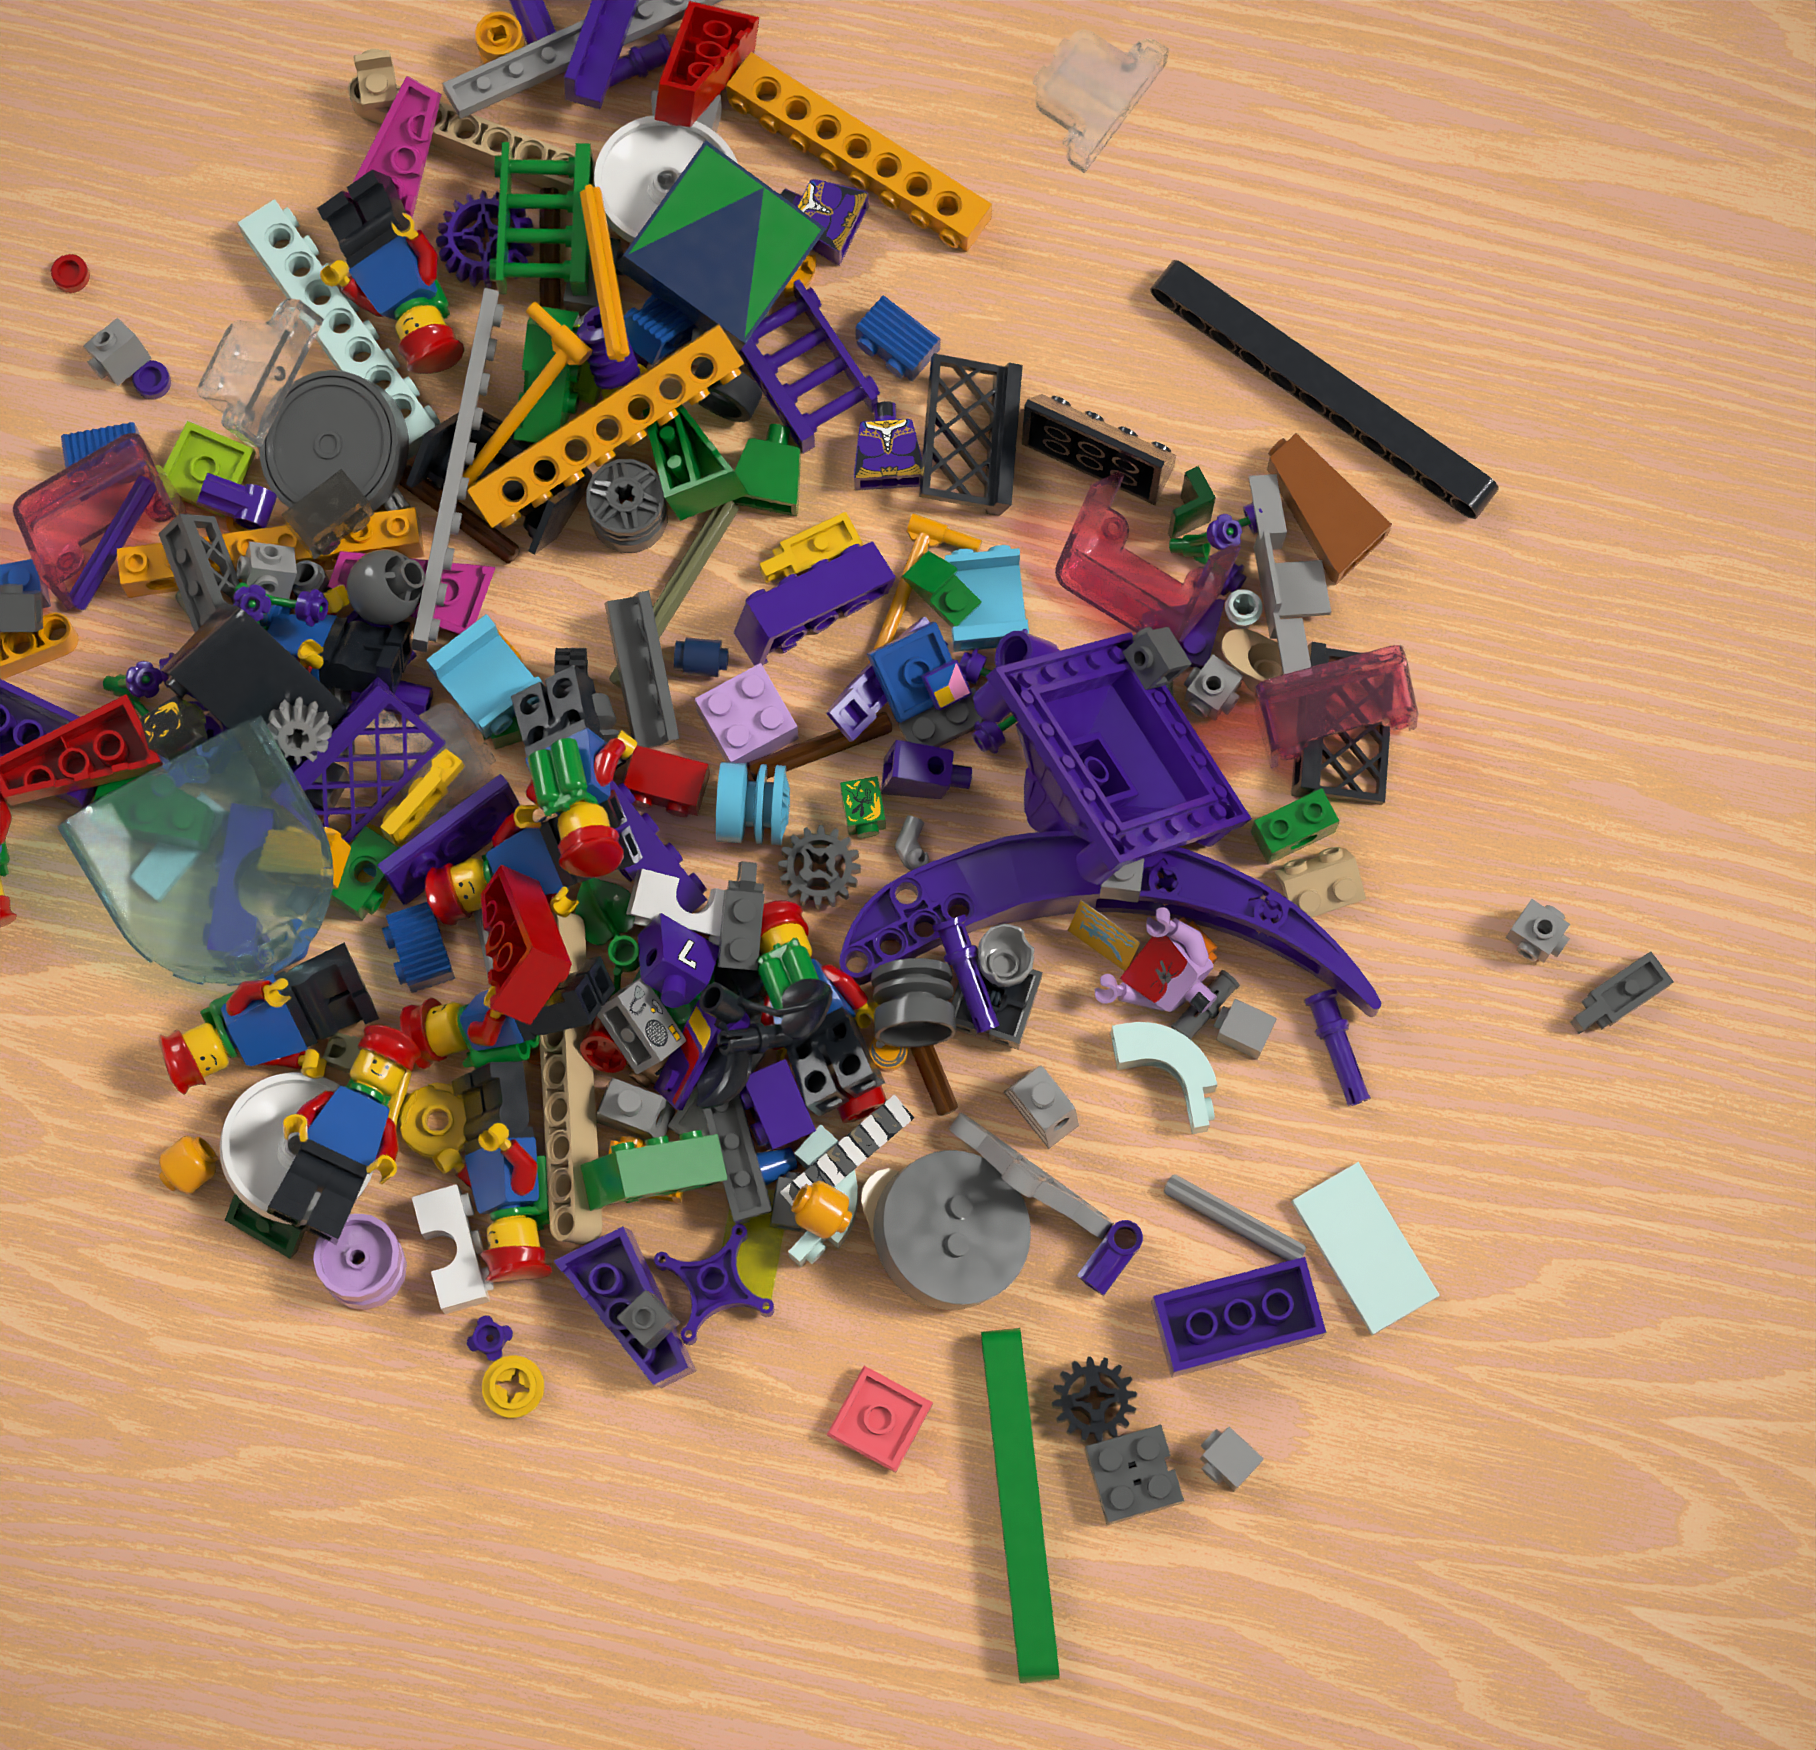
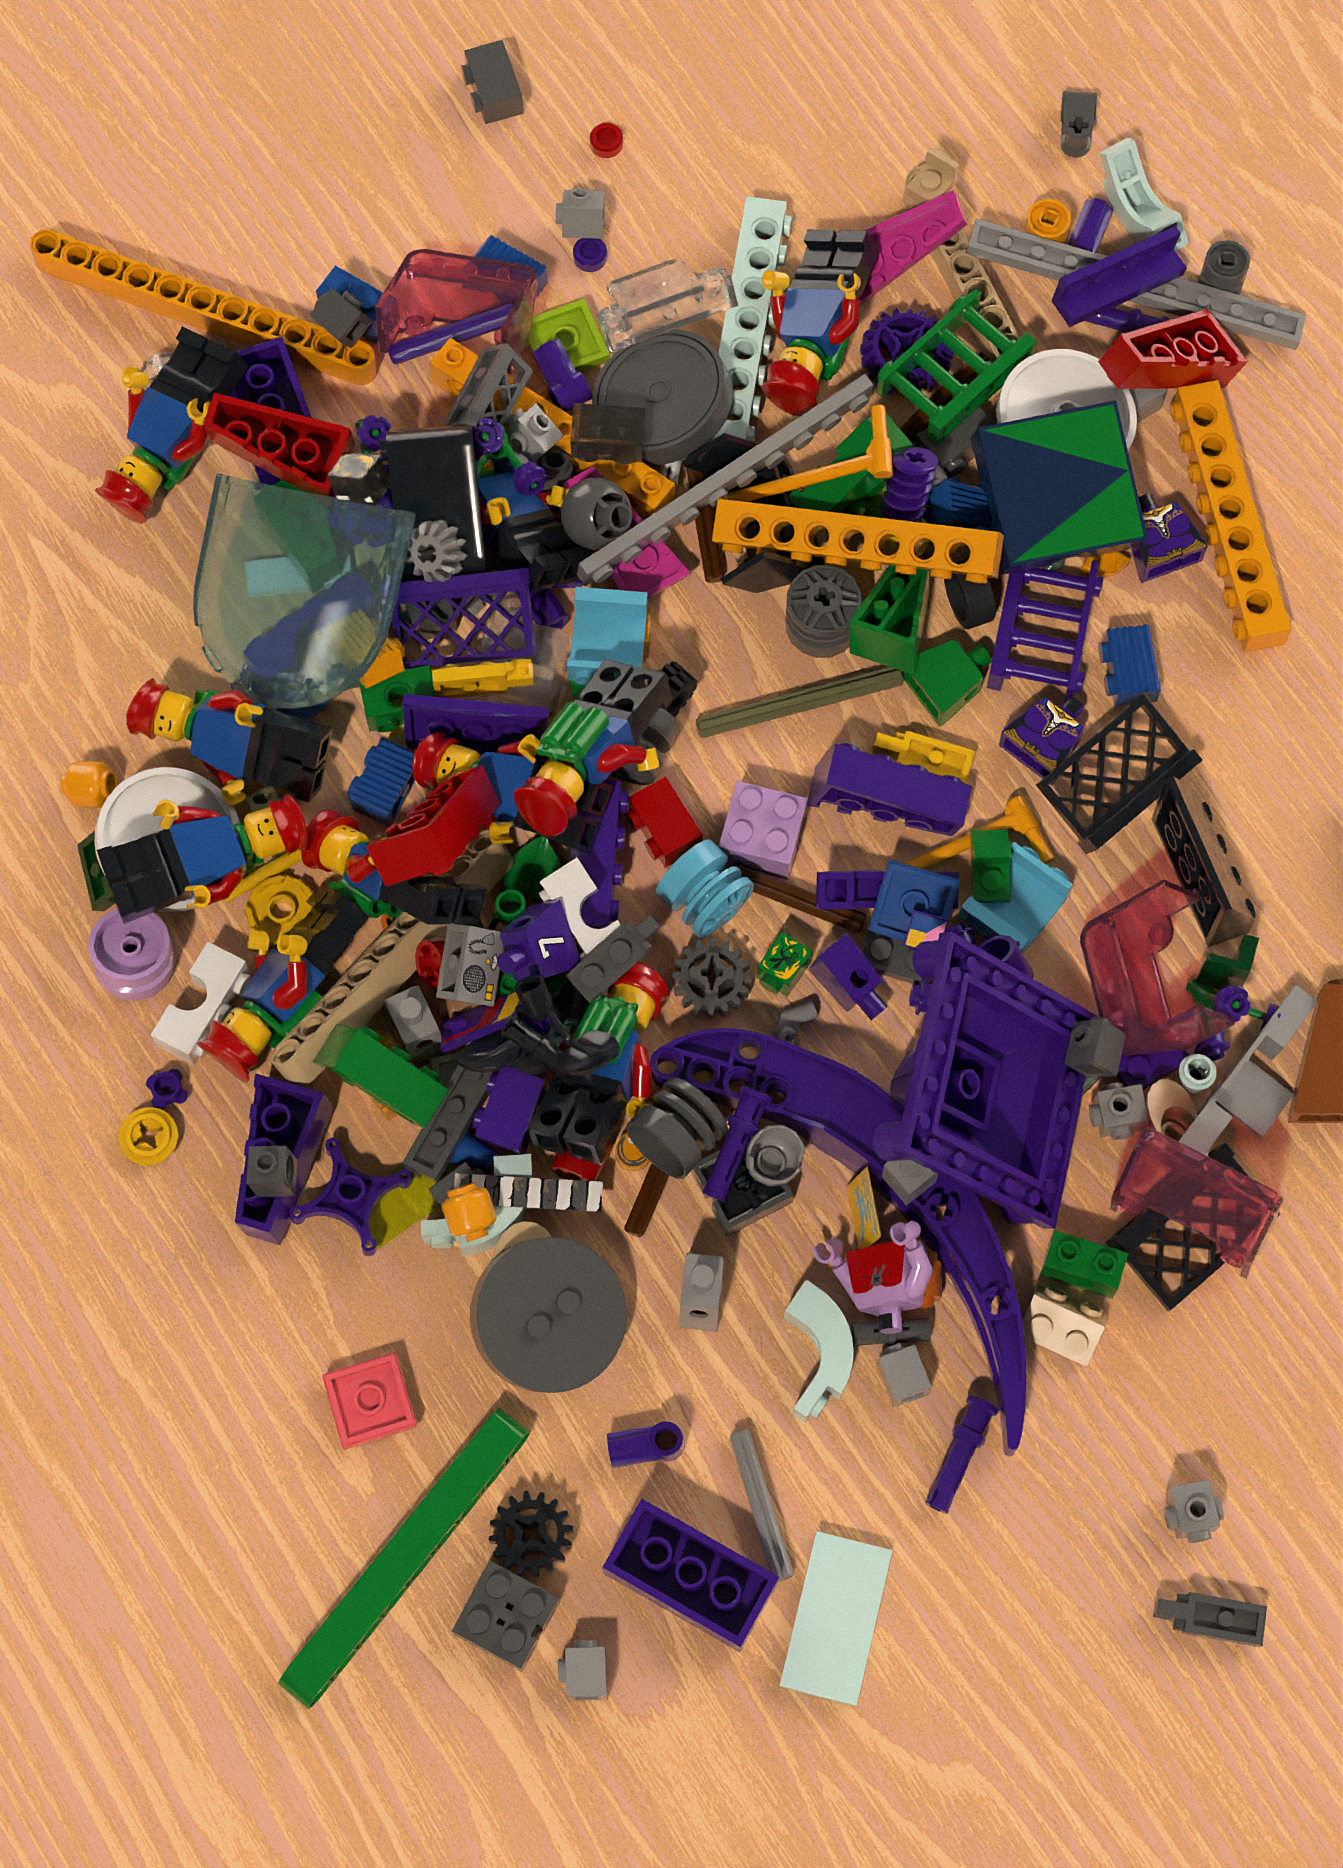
camera: 45 degrees right, 5 degrees down
(604, 273) = (953, 430): light orange axle -> none
(642, 670) = (719, 730): dark grey fence -> none
(700, 657) = (773, 760): dark blue brick -> none
(1029, 1178) = (636, 1326): light grey beam -> none

